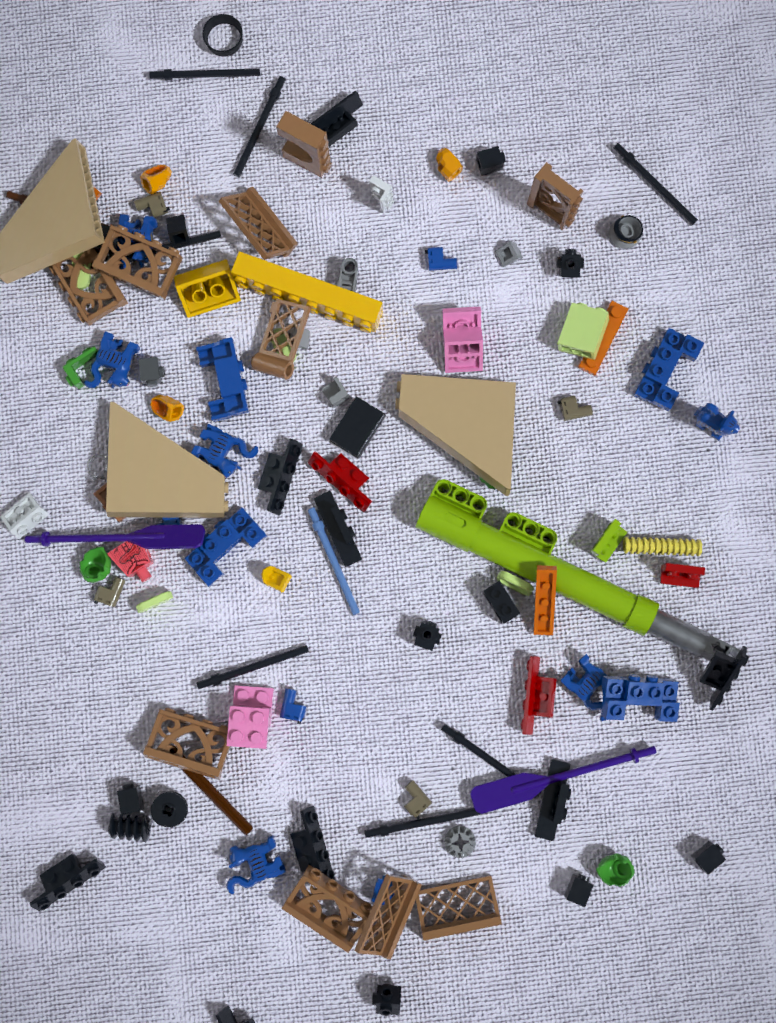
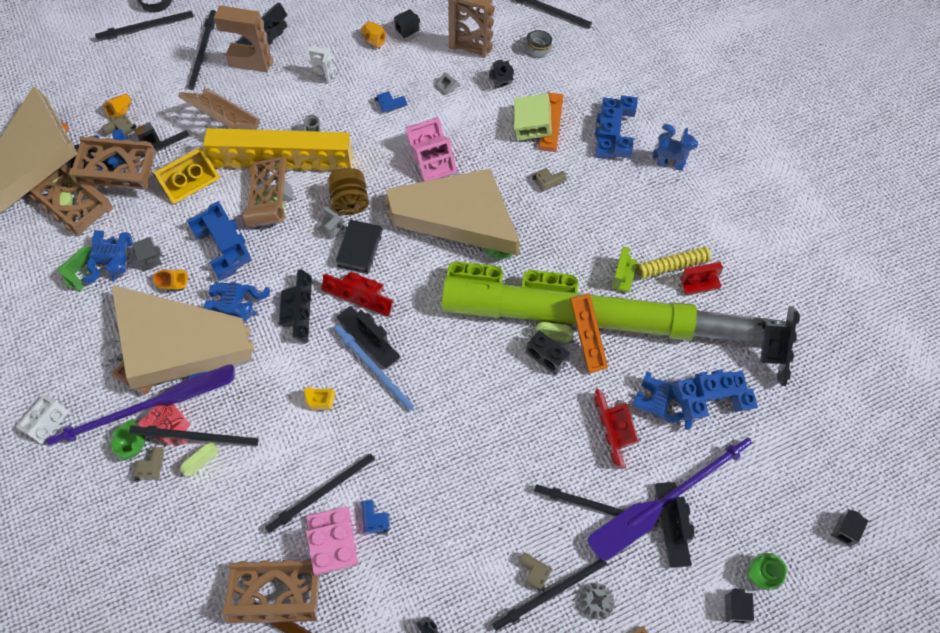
camera: 25 degrees left, 20 degrees down
(119, 568) = (152, 431): none -> black bar
(220, 542) = (254, 382): blue bracket -> none
(363, 364) = (348, 191): none -> pearl gold wheel
(421, 641) = (488, 404): black brick -> none

